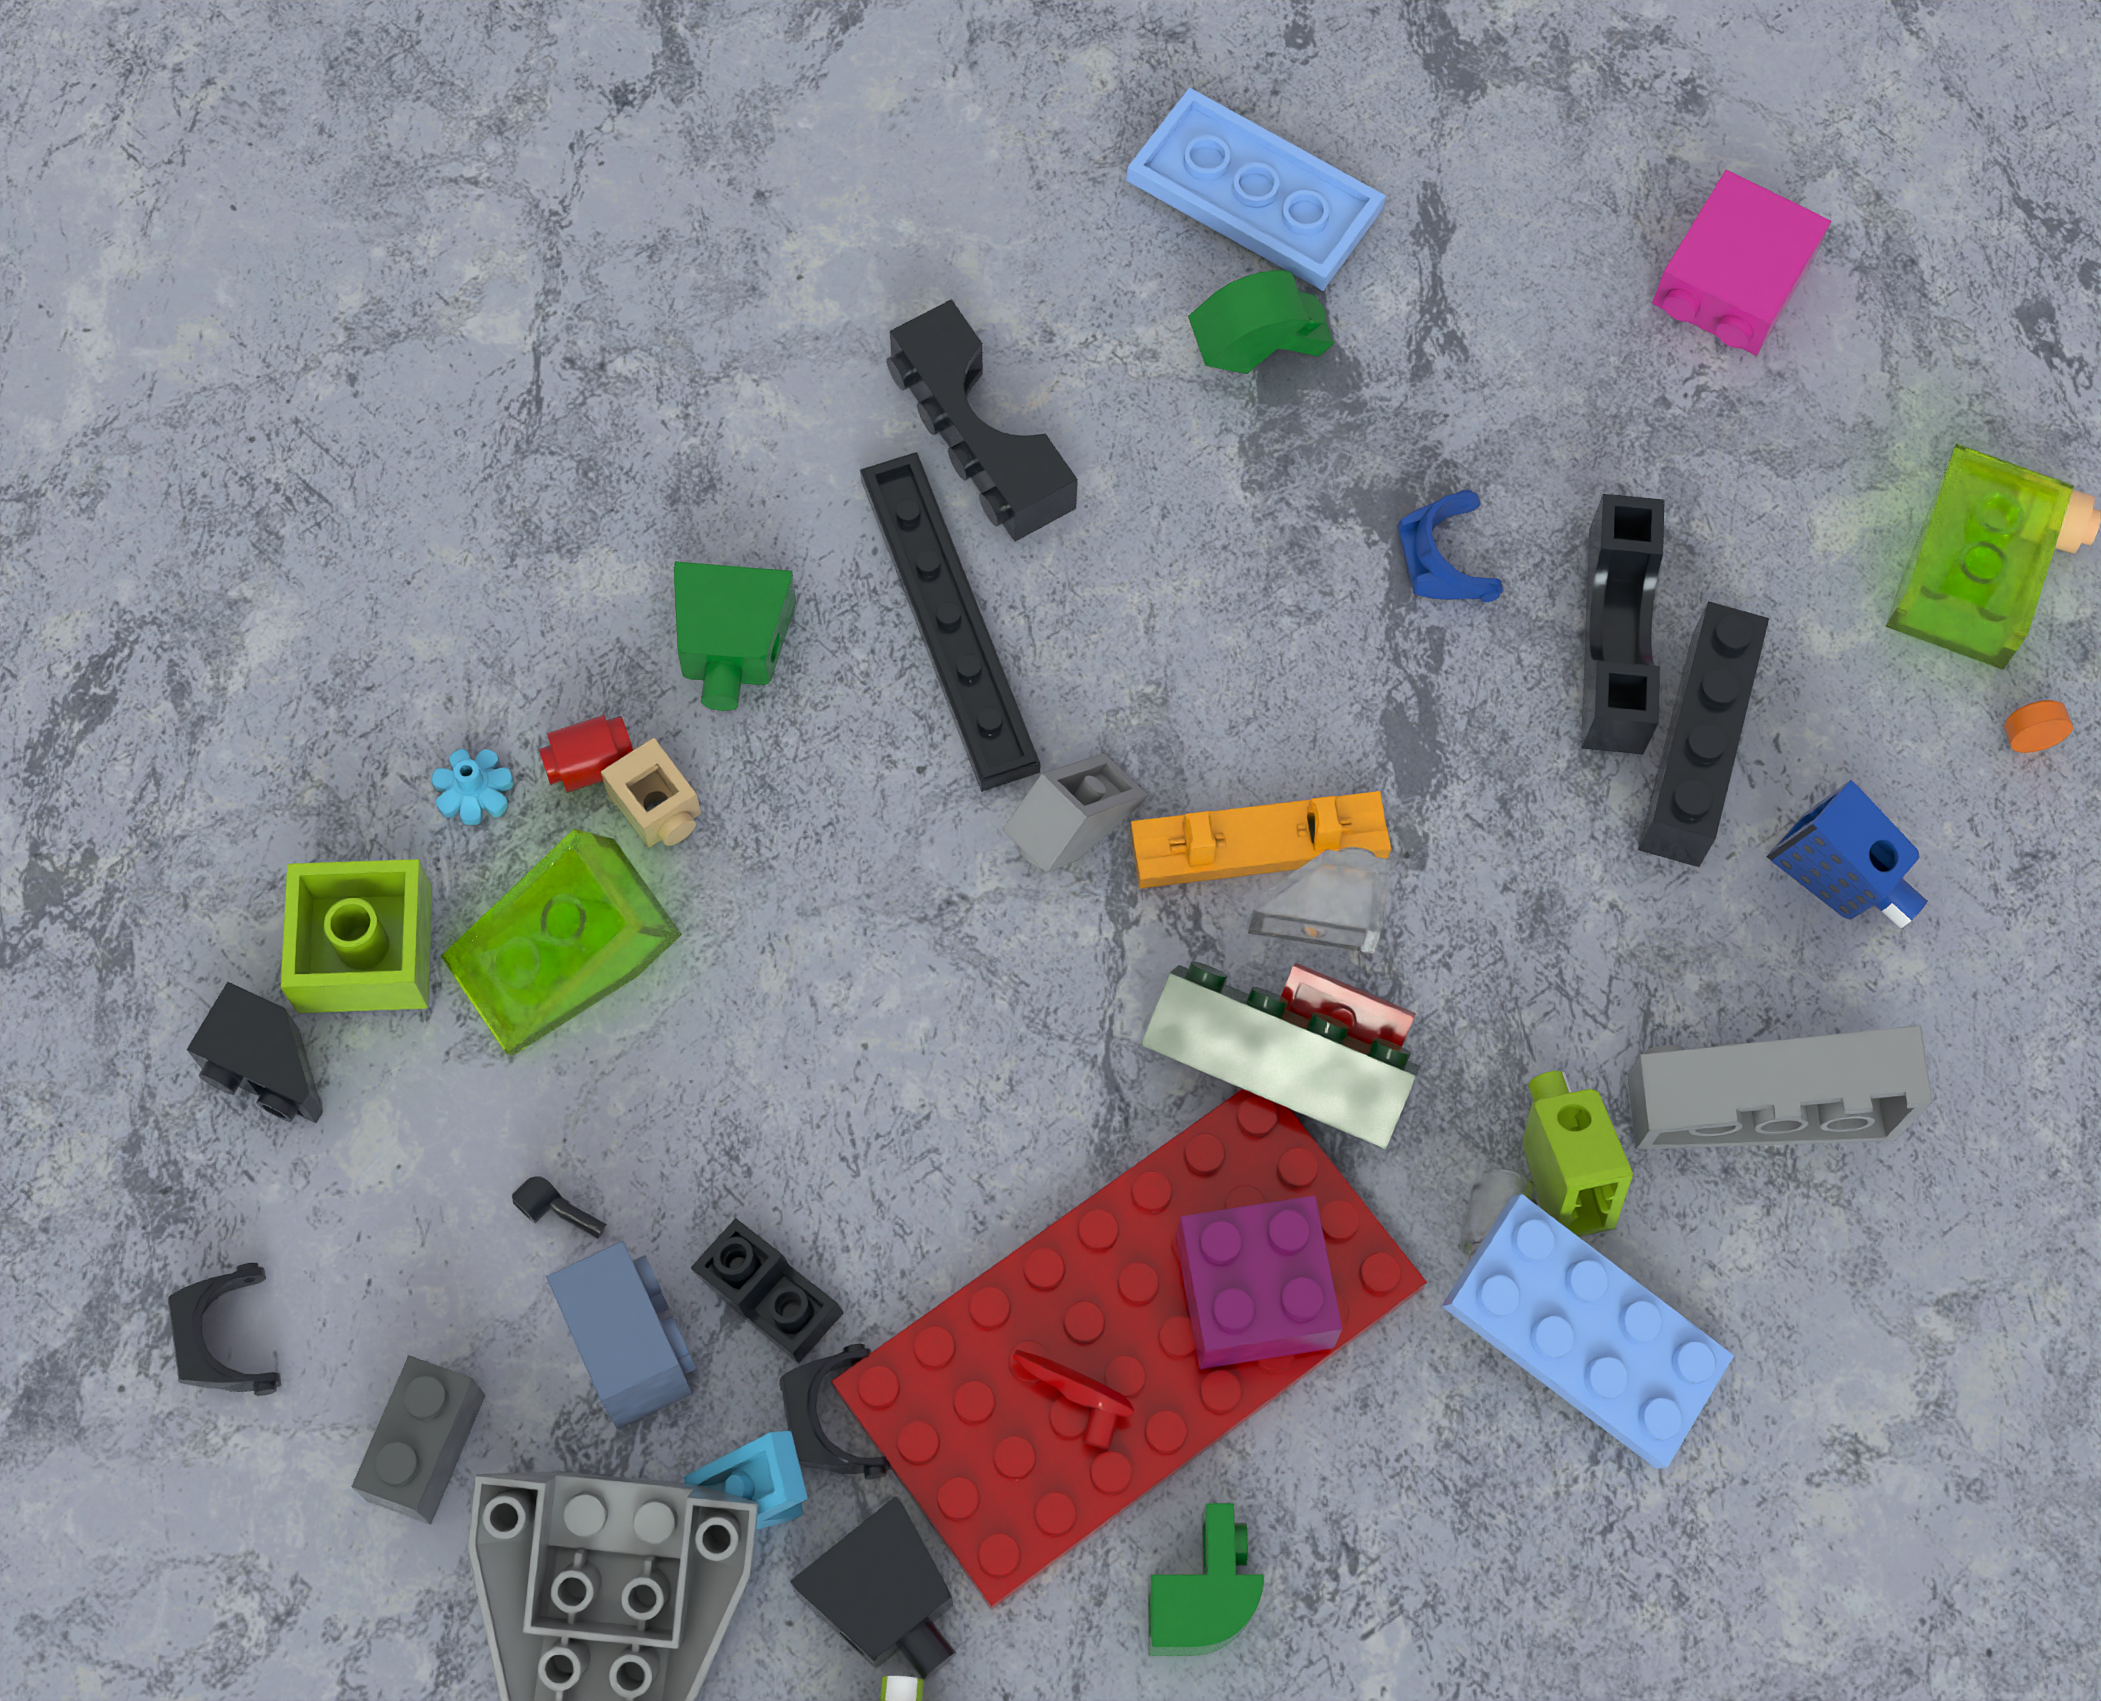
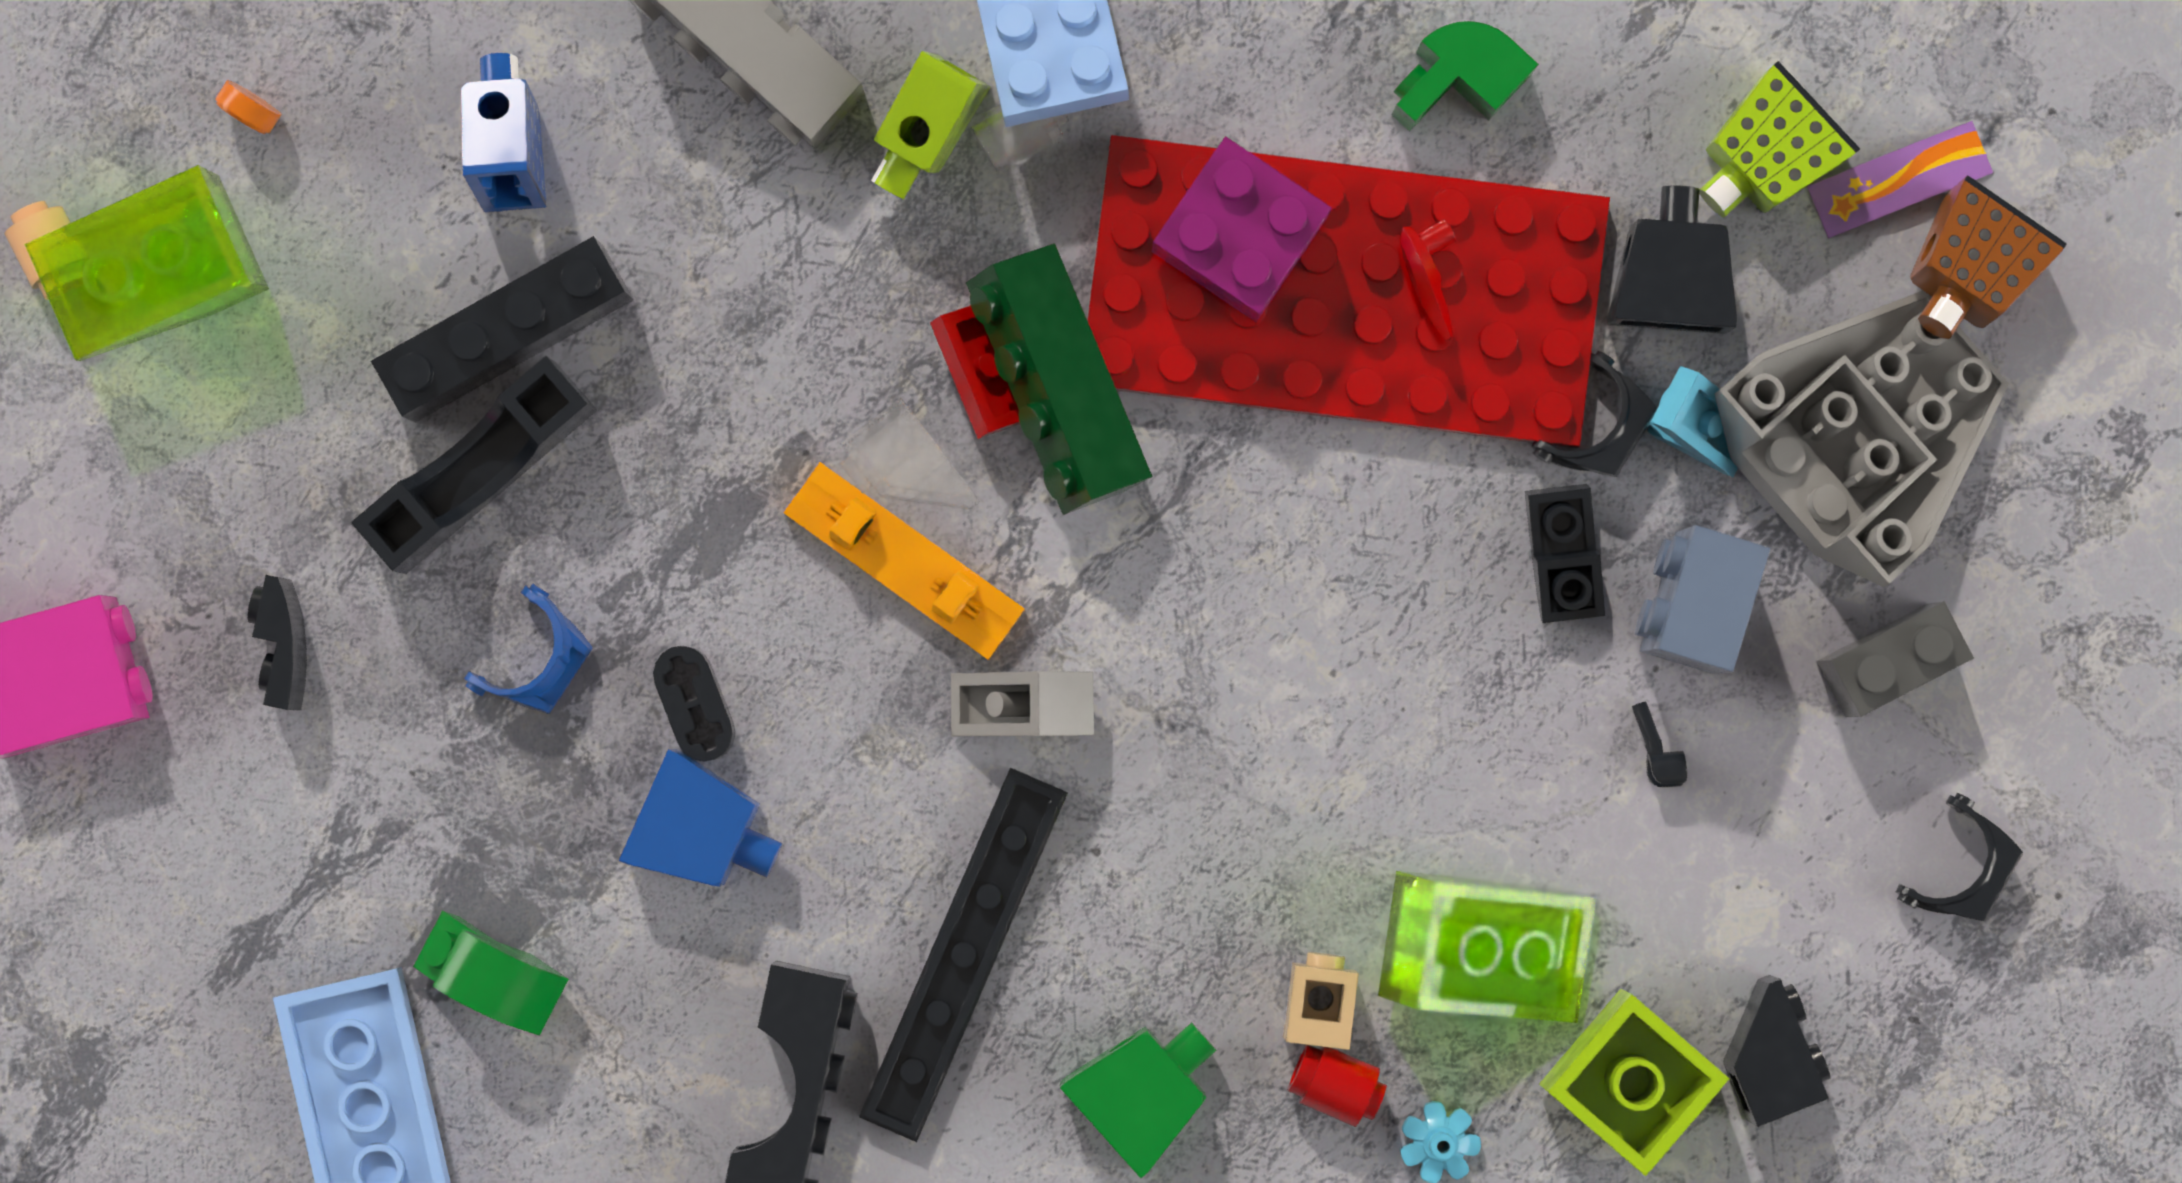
camera: 135 degrees left, 20 degrees up
(1221, 534) = (697, 826): none -> blue torso
(1306, 615) = (680, 709): none -> black beam
(1631, 419) = (280, 620): none -> black slope

